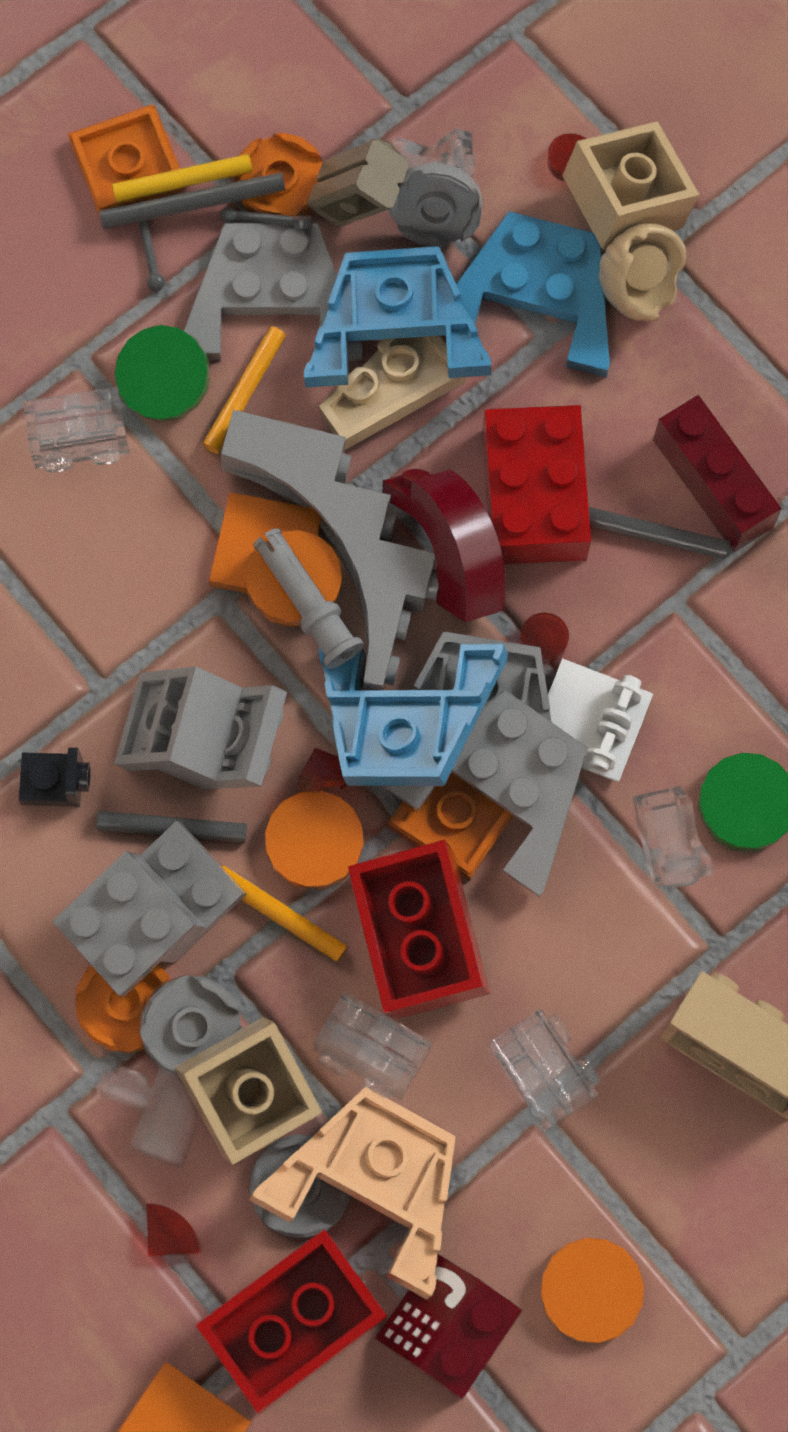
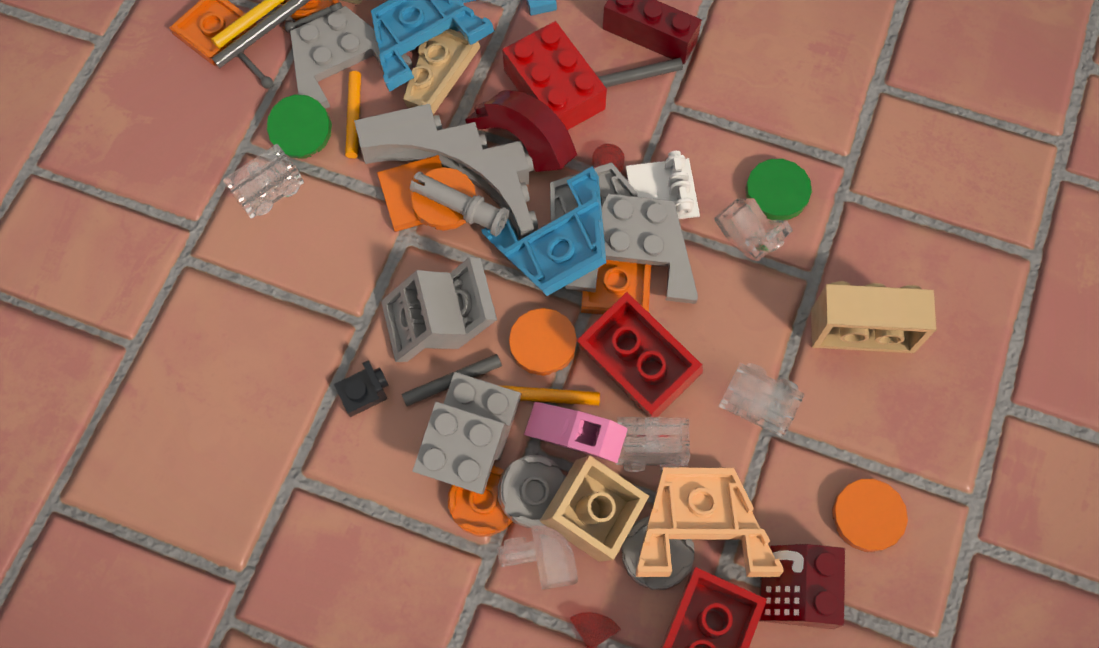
camera: 25 degrees left, 5 degrees down
(281, 983) = (576, 431): none -> bright pink slope
(321, 771) = (527, 297): clear red tile -> none

